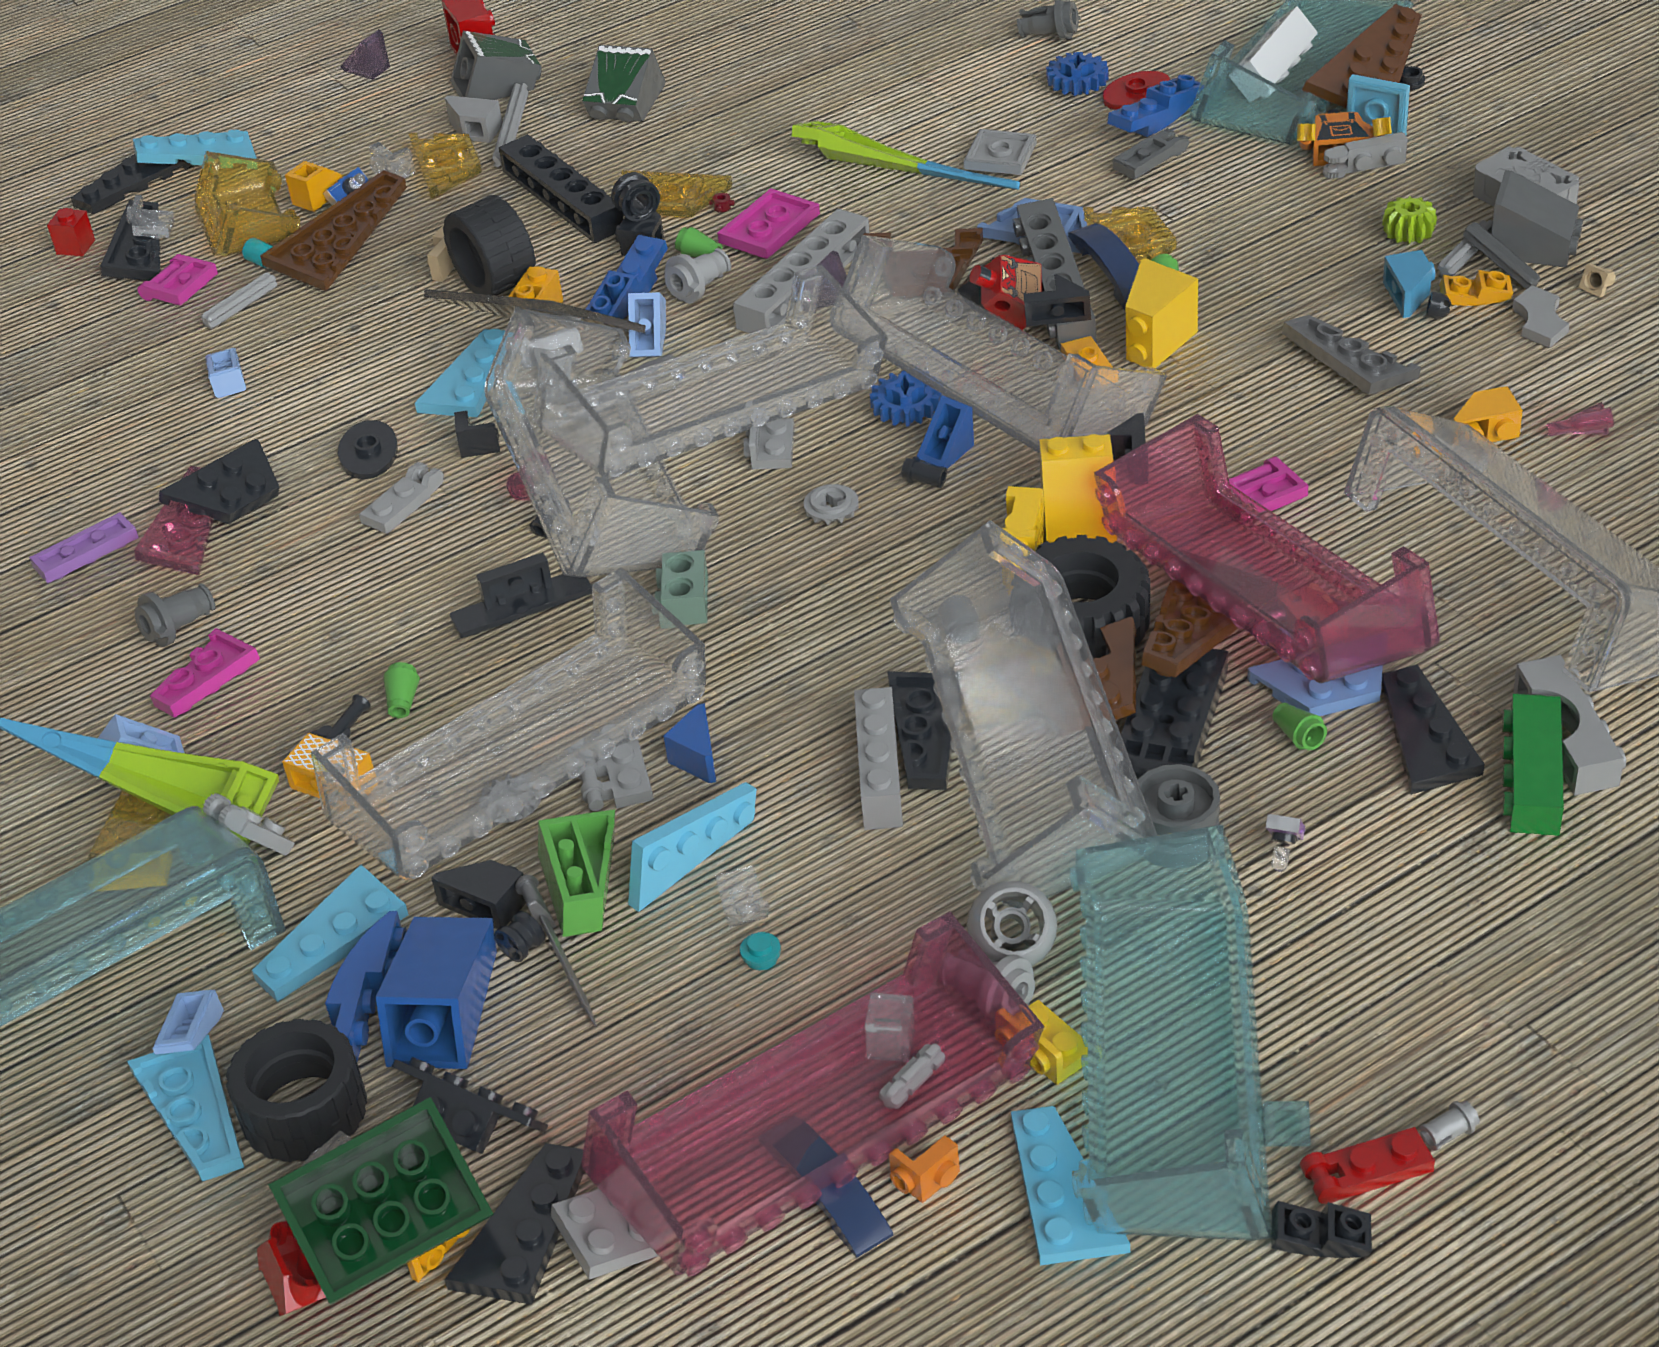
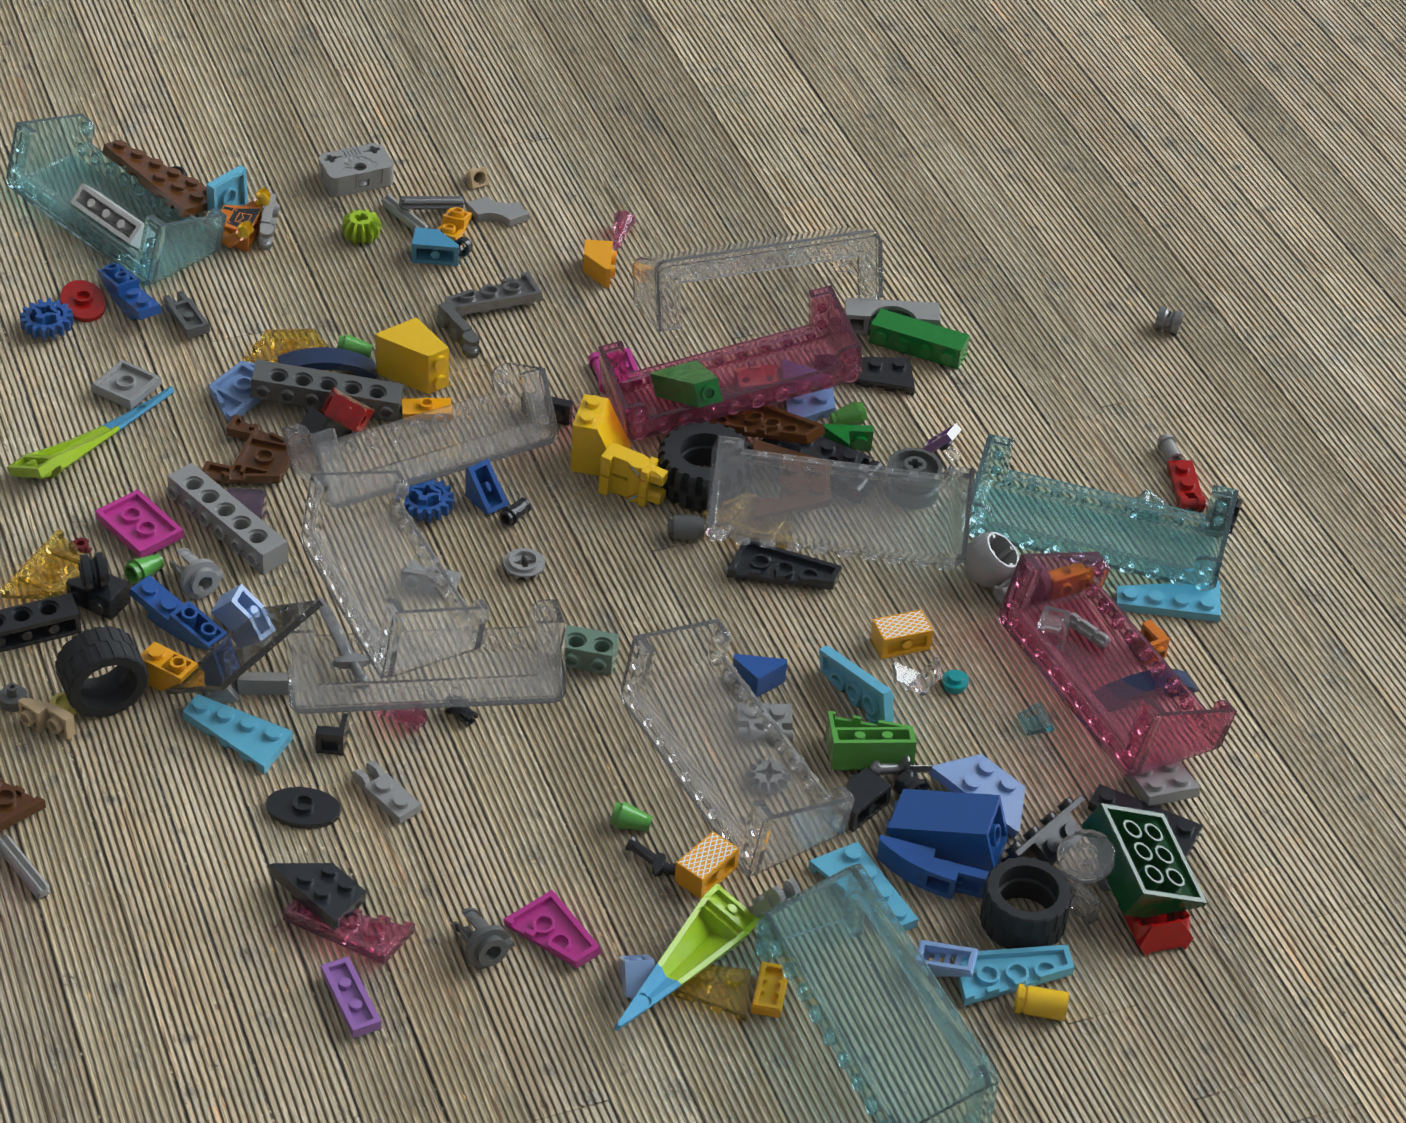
camera: 85 degrees left, 0 degrees up
(132, 1147) = (1041, 1002): none -> yellow piece
(225, 372) = (149, 890): light blue slope -> none
(344, 1111) = (1086, 856): none -> clear tile
(515, 593) = (556, 742): black bracket -> none
(532, 1018) = (982, 776): none -> medium blue wing
(711, 1058) = (1036, 720): none -> clear light blue slope
(829, 870) = (901, 634): none -> light orange panel
(878, 758) = (838, 592): light grey arch -> none
(1063, 305) = (388, 388): black slope -> none
(1211, 530) = (687, 384): none -> green slope
(1235, 729) = (852, 436): none -> green slope
(1251, 343) = (458, 329): none -> dark grey hinge
(1535, 222) = (408, 176): dark grey slope -> none

